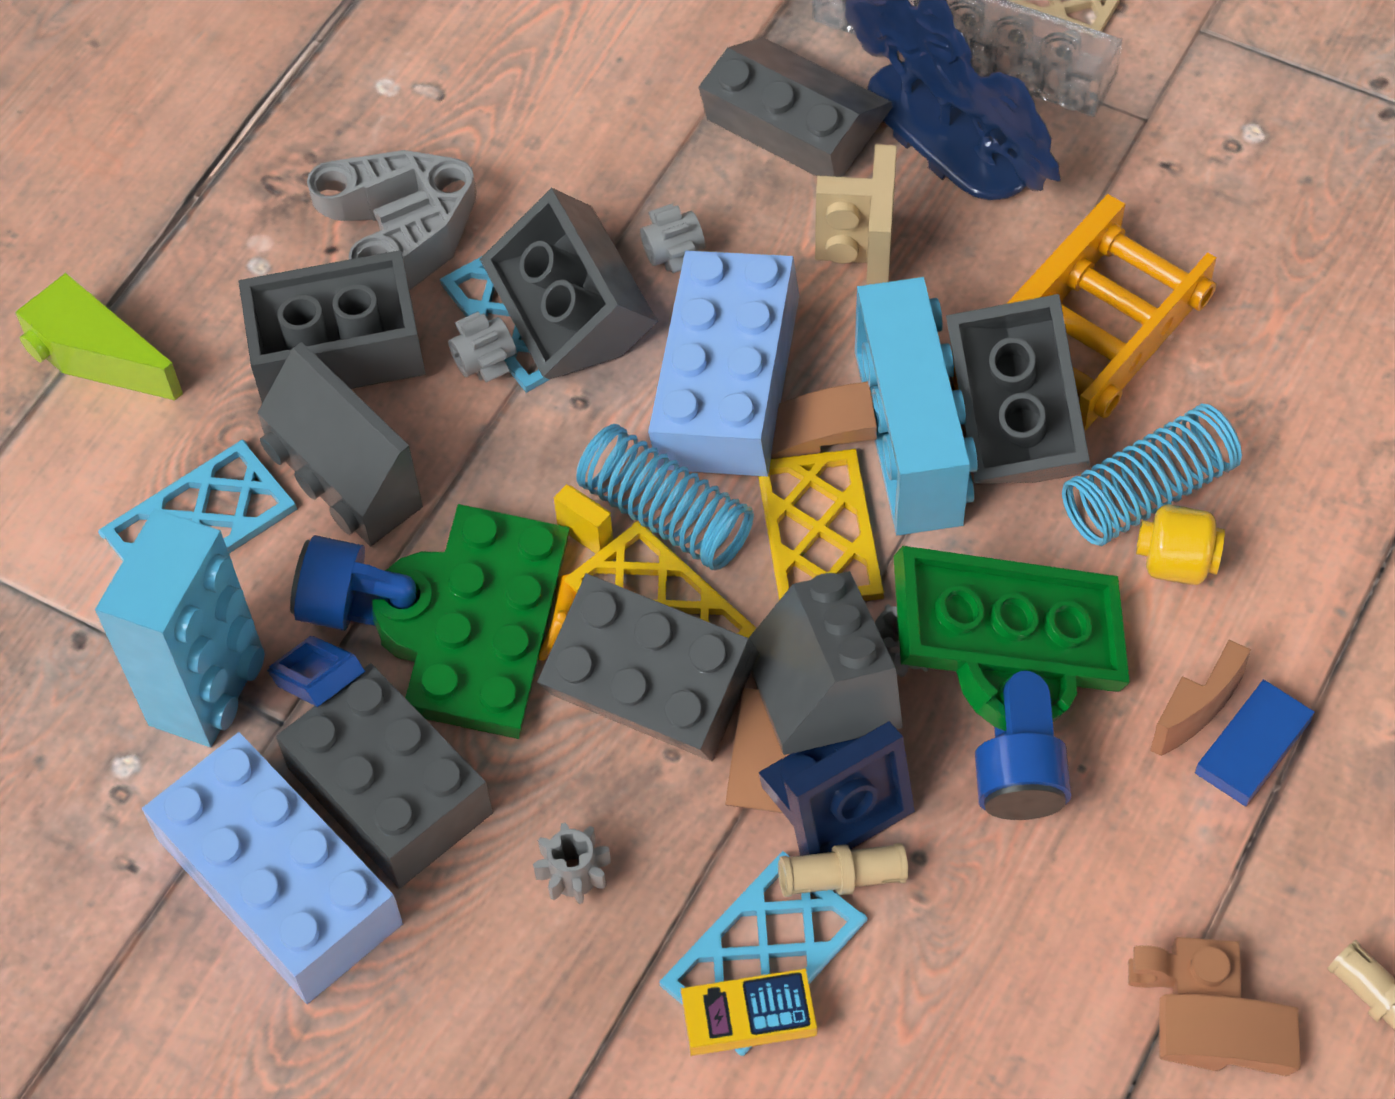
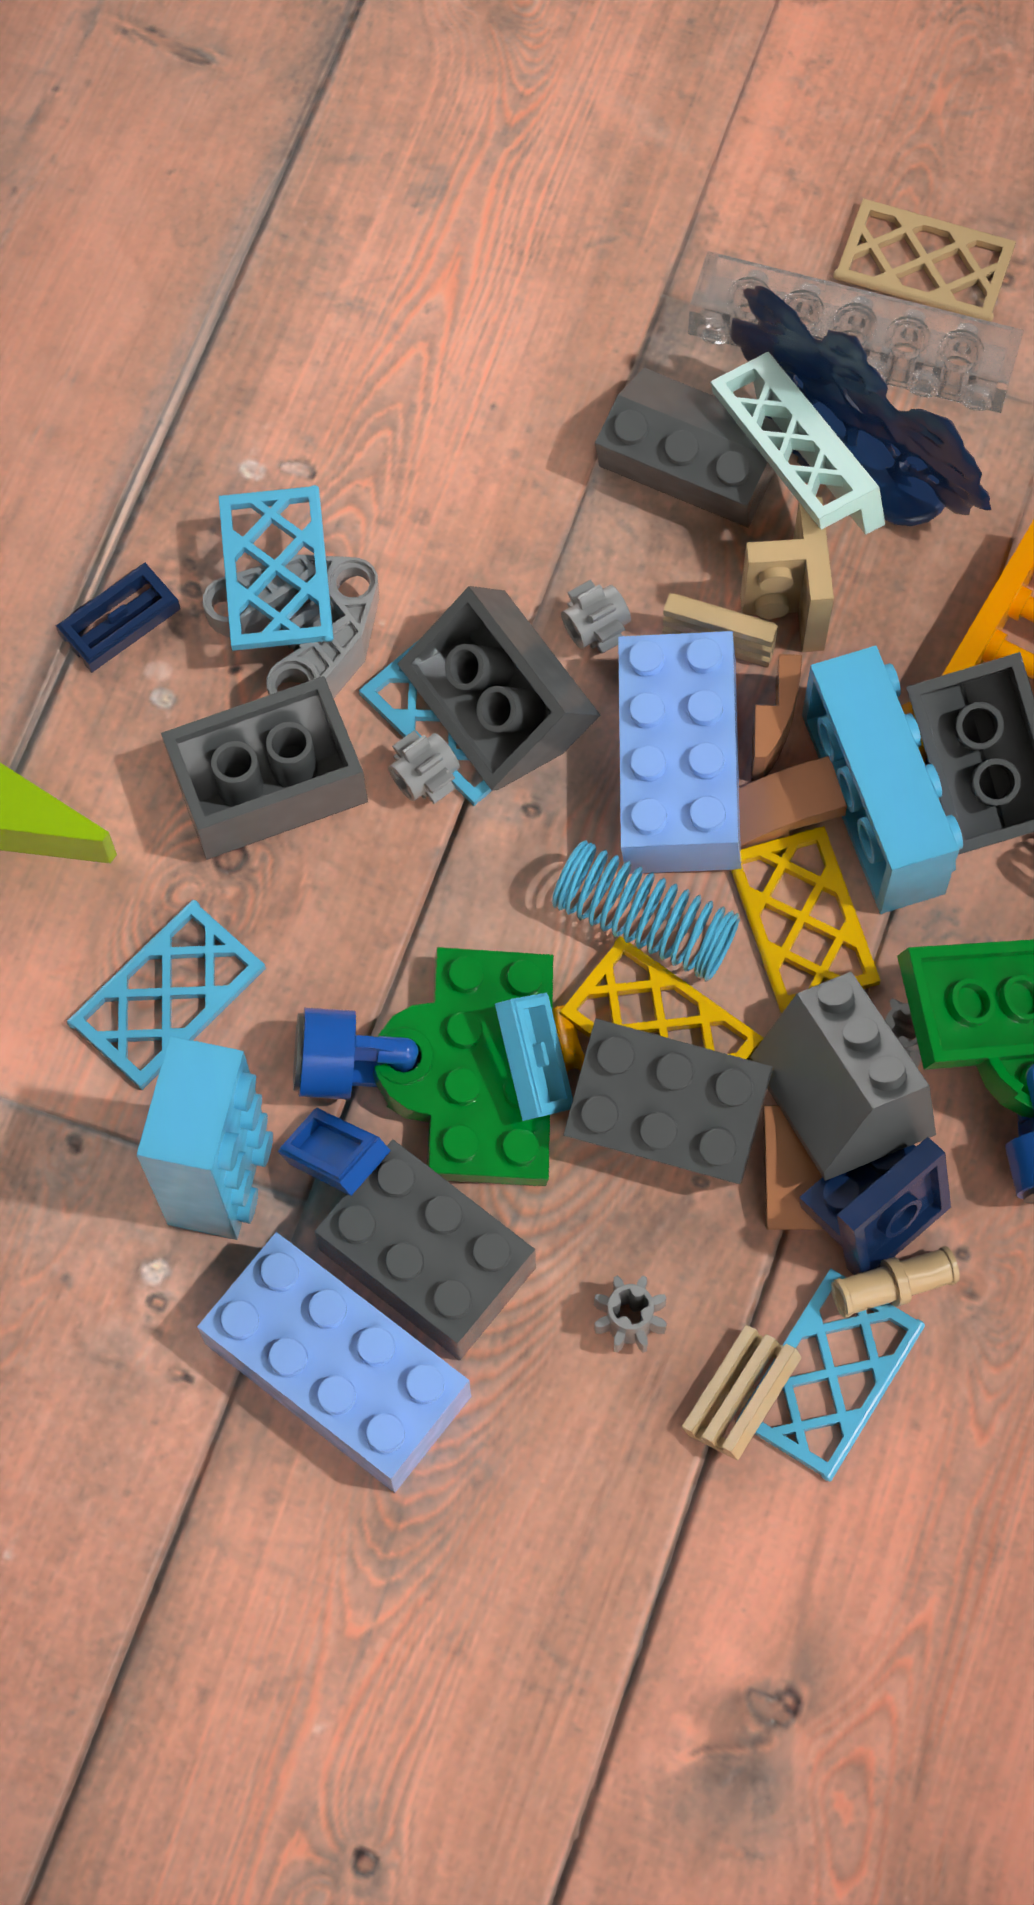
camera: 10 degrees left, 10 degrees up
(237, 197) = (96, 645): none -> dark blue tile
(338, 448) = (302, 904): dark grey slope -> none
(373, 208) = (315, 589): none -> medium azure window
(525, 609) = (534, 1055): none -> medium azure tile
(587, 520) = (568, 945): yellow tile -> none
(661, 949) = (733, 1387): none -> tan tile
(748, 1012) = (831, 1440): tile -> none
(815, 272) = (752, 636): none -> tan tile
(824, 349) = (773, 723): none -> nougat slope
(894, 92) = (802, 431): none -> light aqua fence

